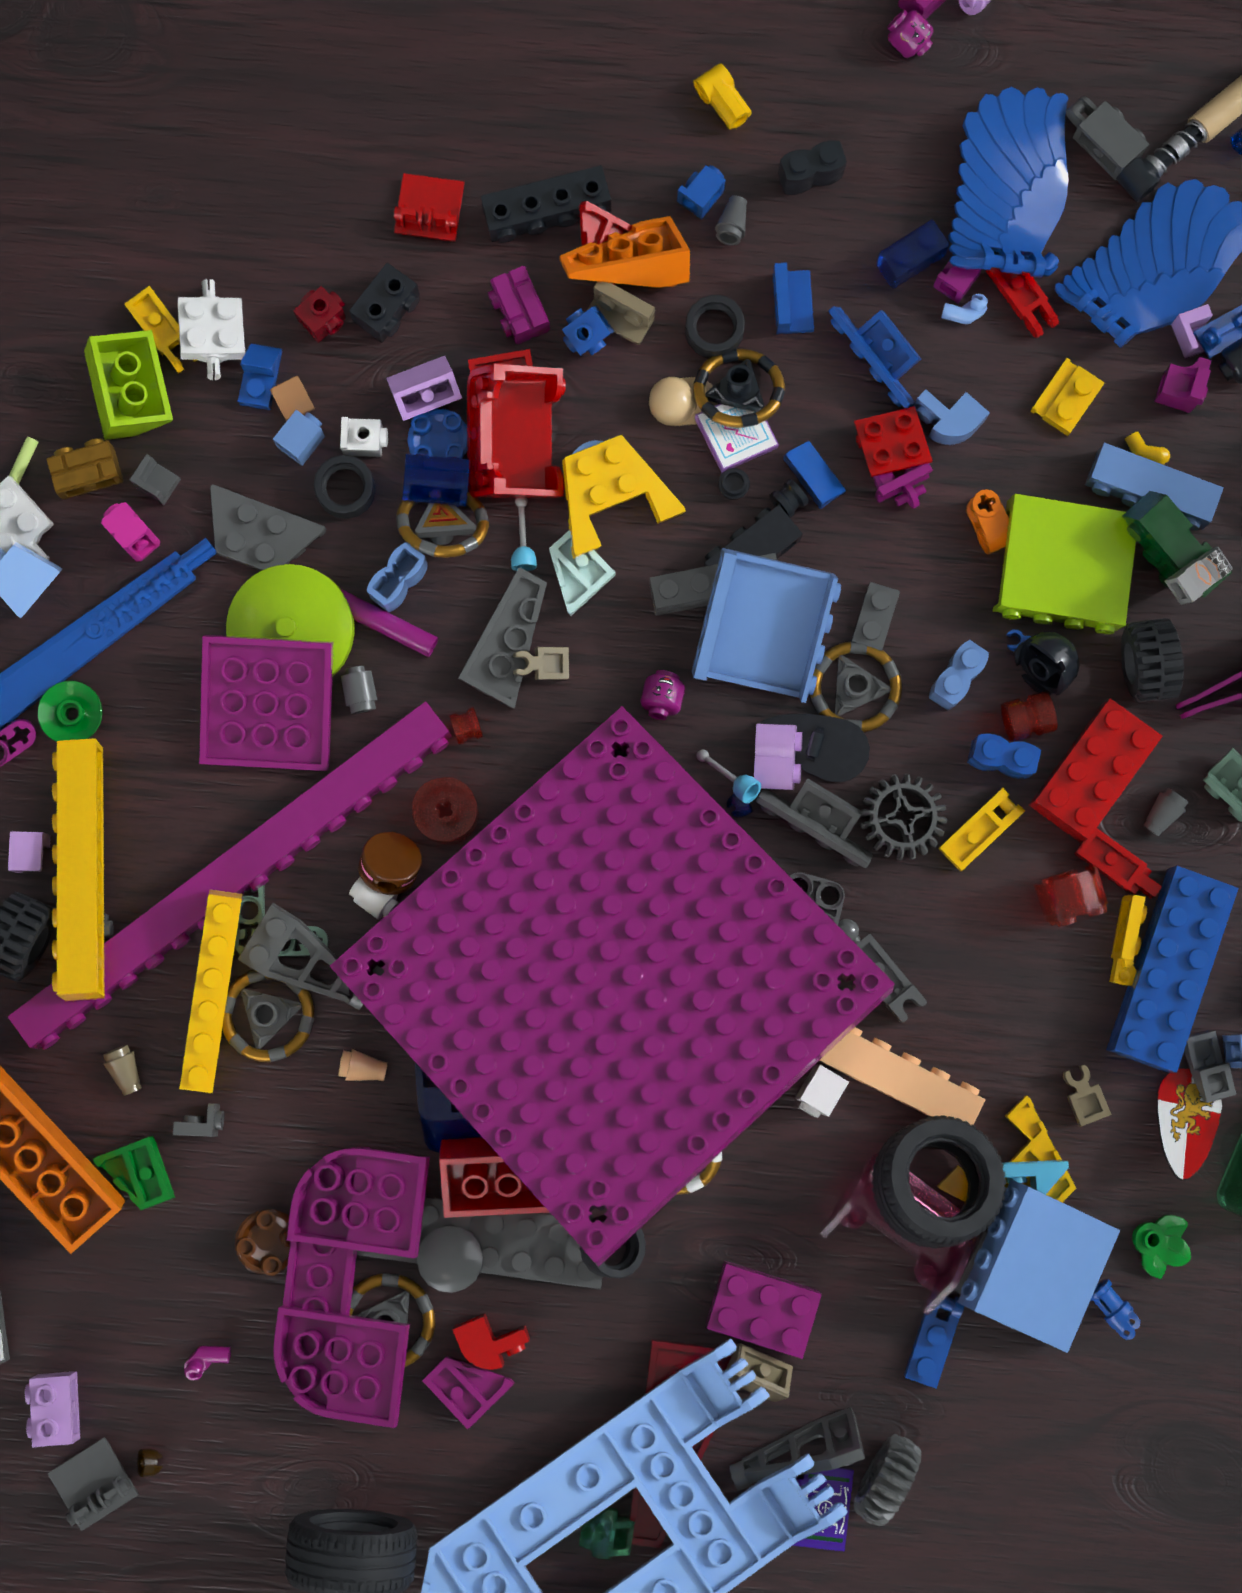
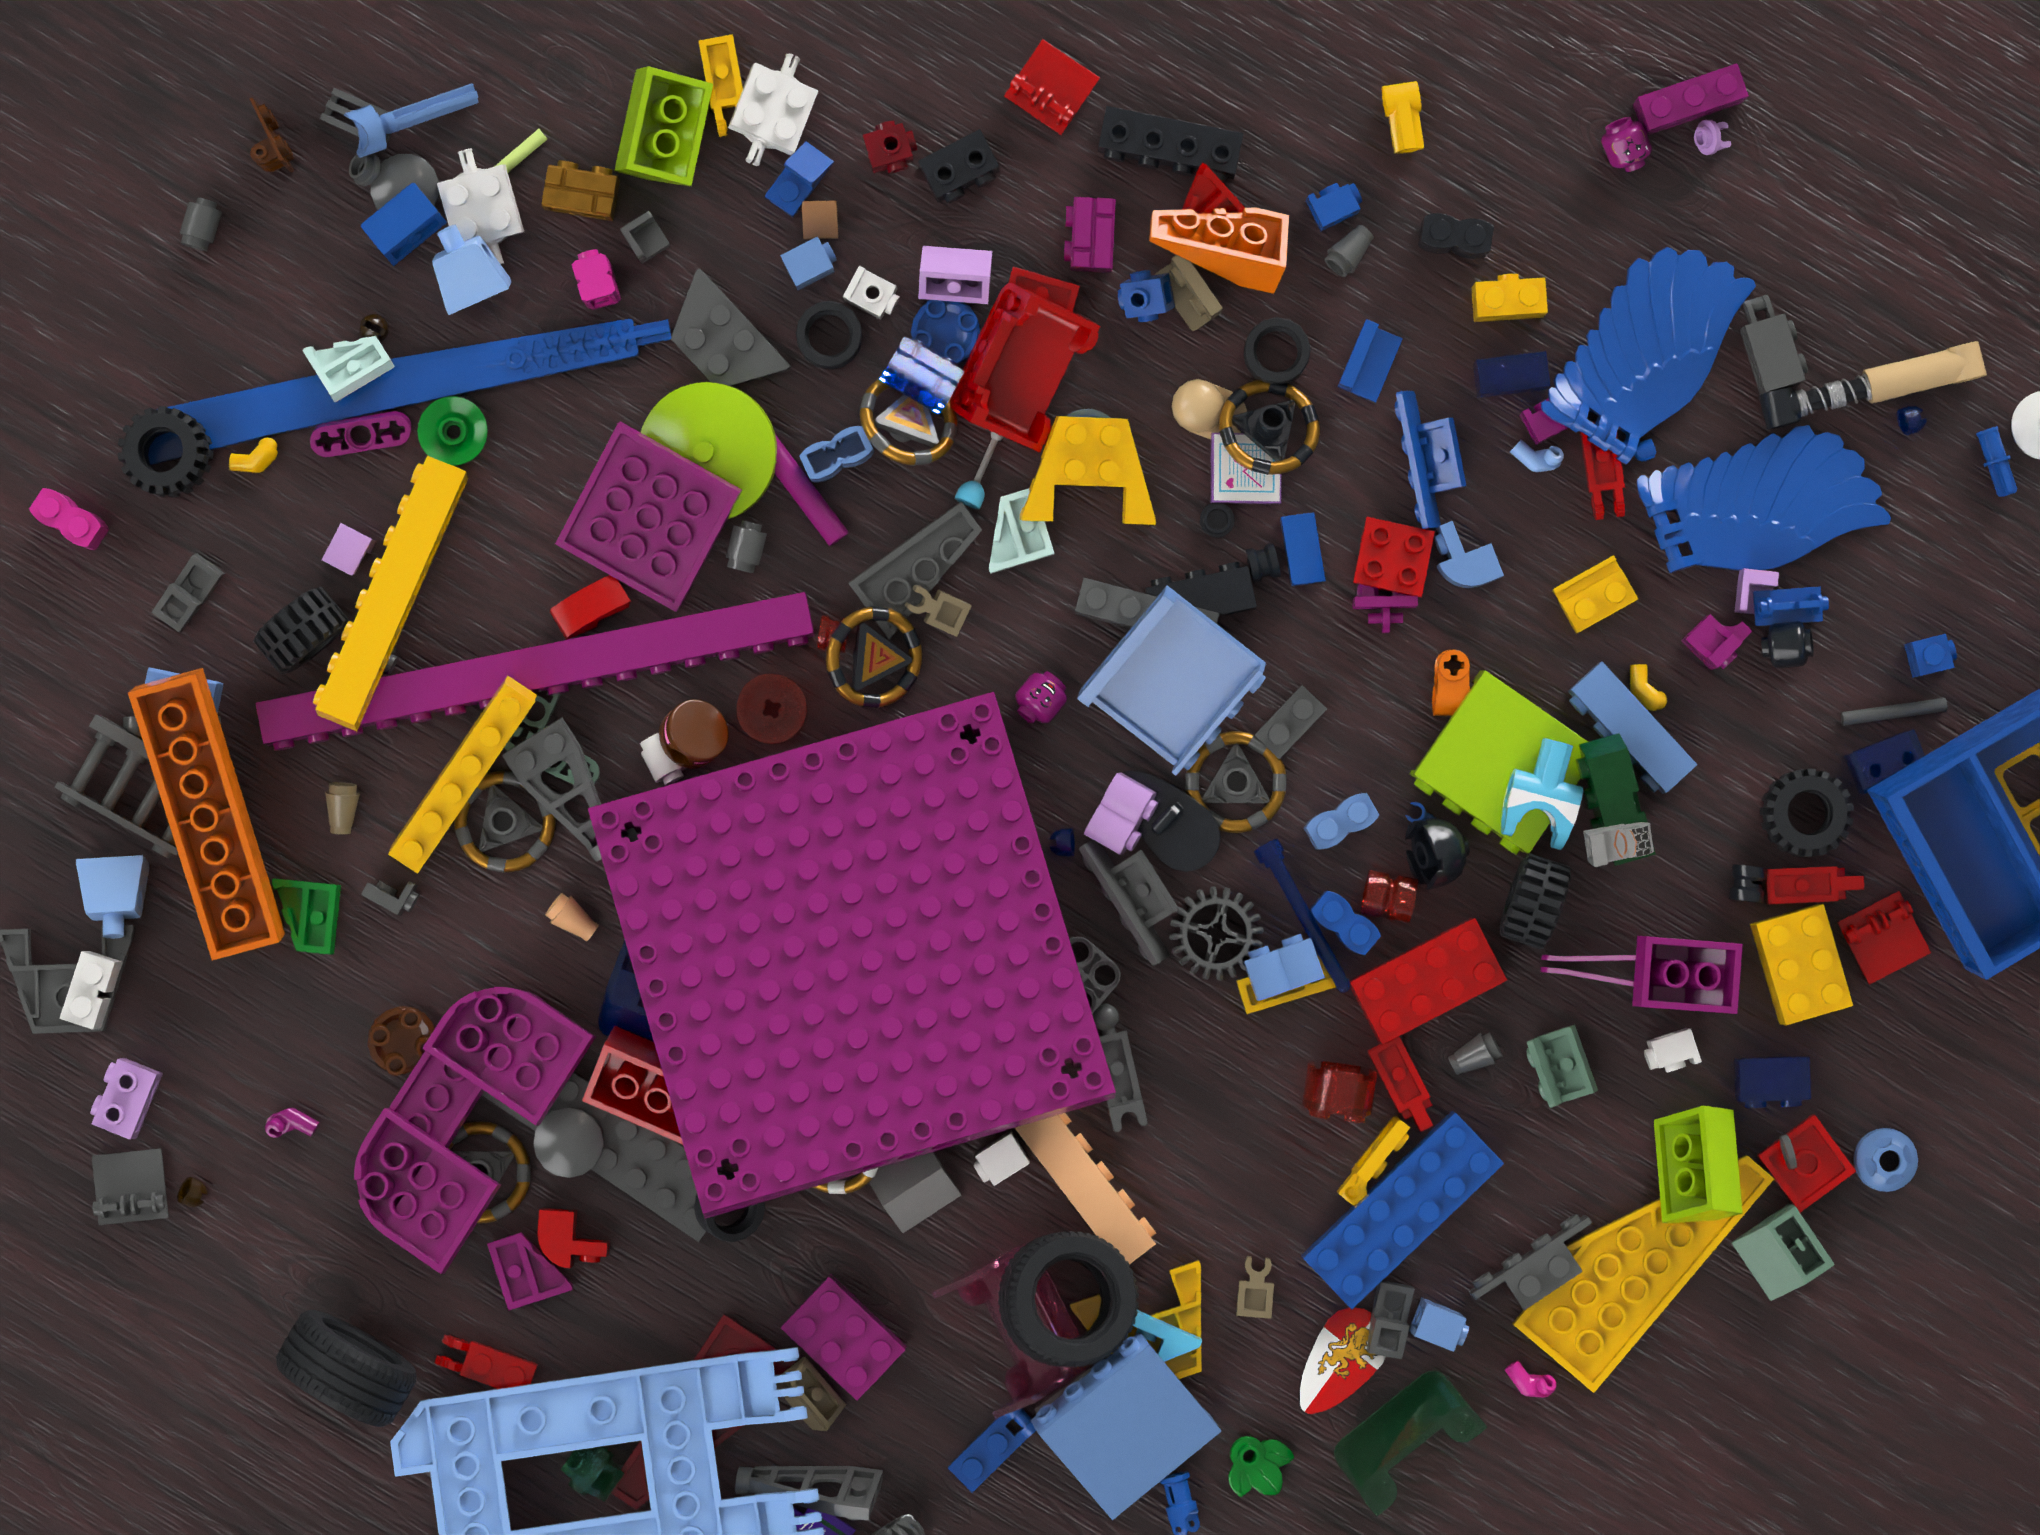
camera: 30 degrees right, 5 degrees up
(251, 800) = (589, 605): none -> red slope
(472, 1484) = (488, 1364): none -> red hinge
(508, 727) = (874, 657): none -> piece
(745, 786) = (1075, 829): medium azure hinge -> none
(759, 1154) = (913, 1189): none -> light grey slope
(880, 196) = (1509, 298): none -> yellow brick
(917, 732) = (1272, 857): none -> clear blue piece
(974, 816) = (1283, 968): none -> medium blue brick
(1115, 567) = (1544, 791): none -> medium azure connector

